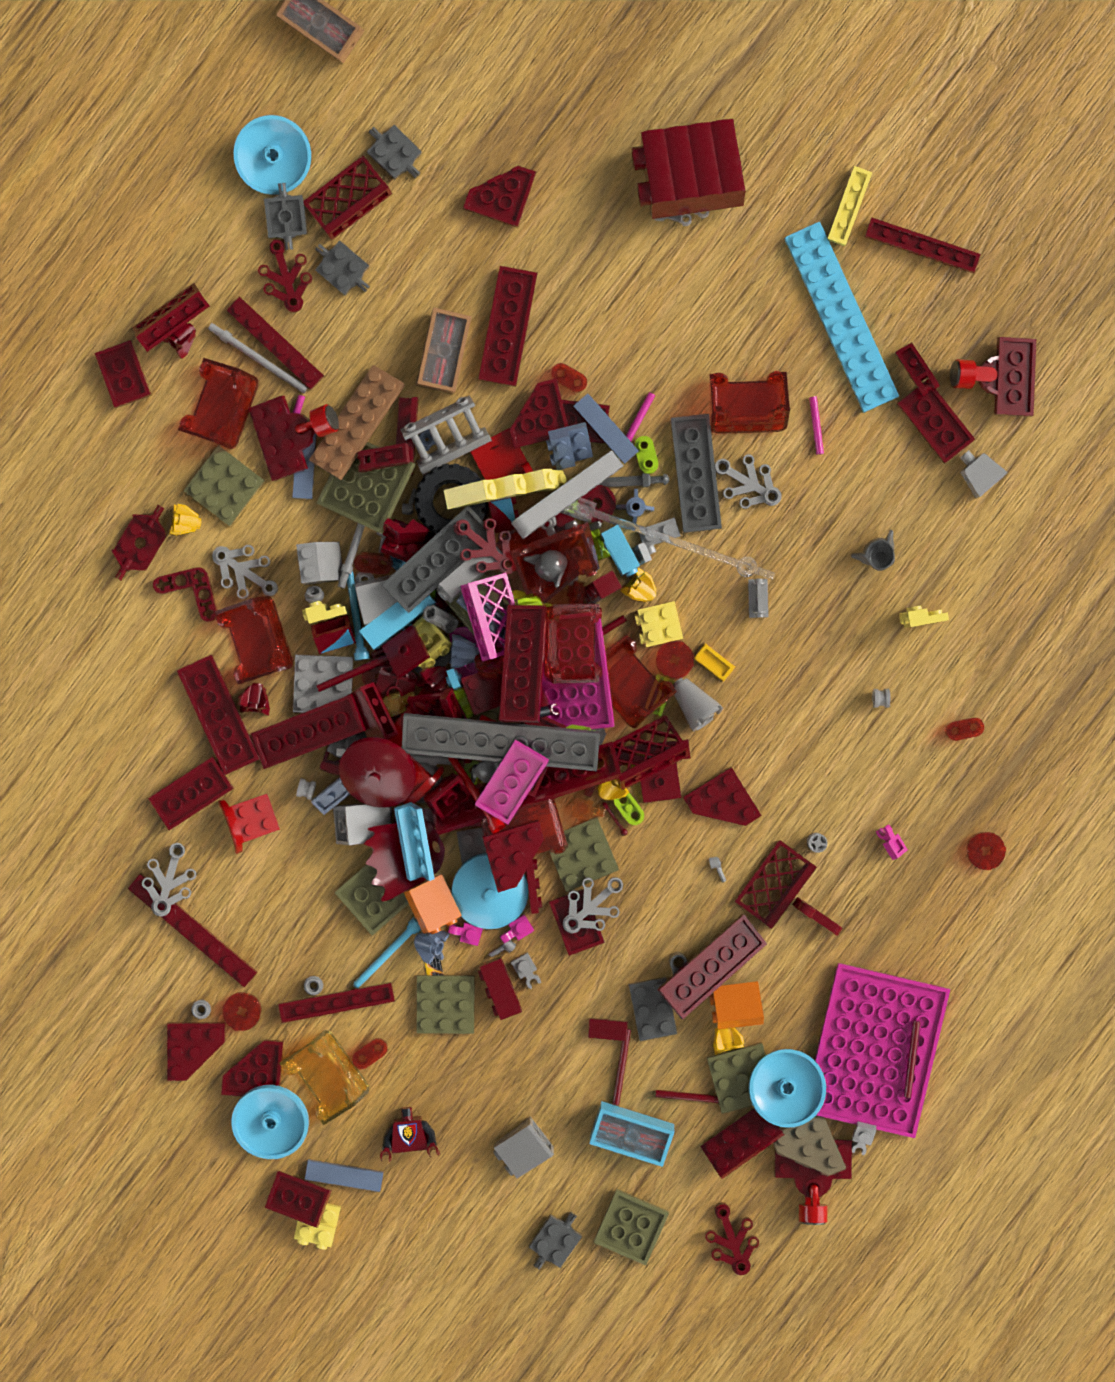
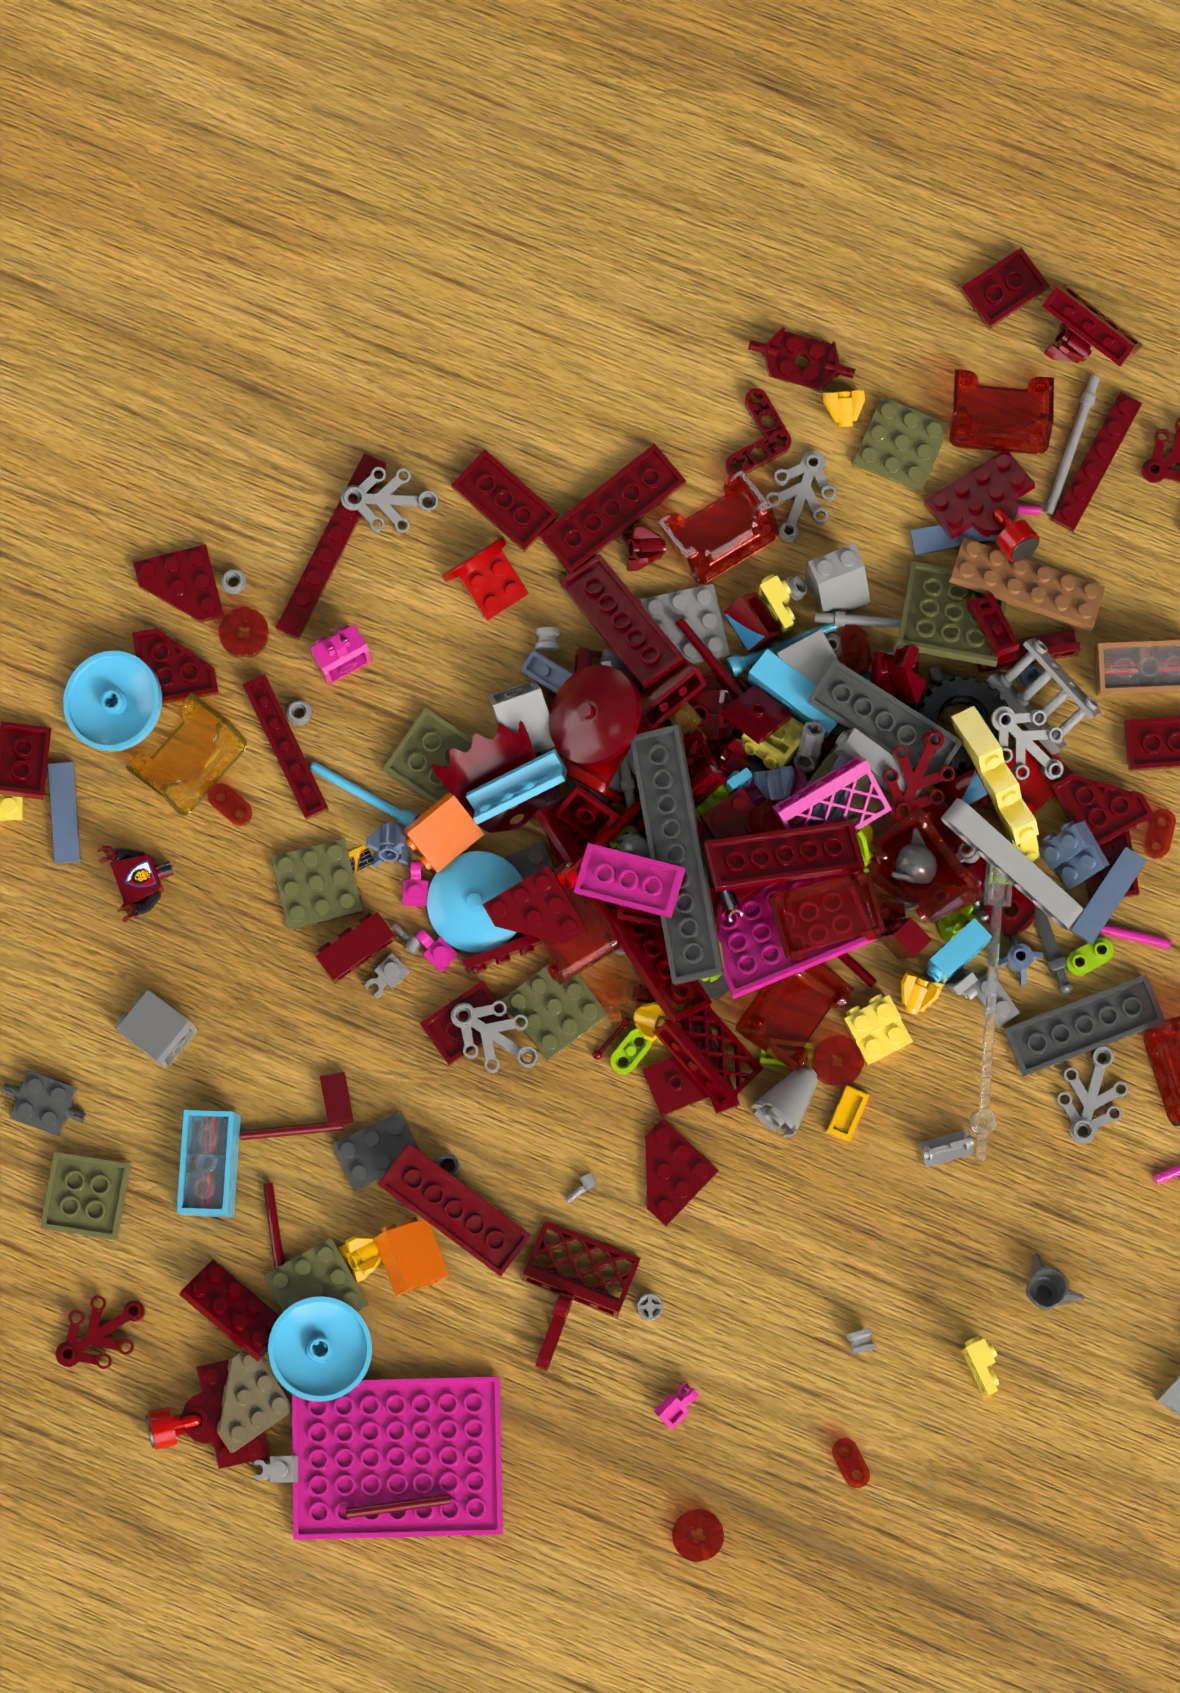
camera: 75 degrees right, 10 degrees down
(278, 946) = (340, 653): none -> dark pink hinge
(476, 458) = (1024, 741): none -> light grey plant

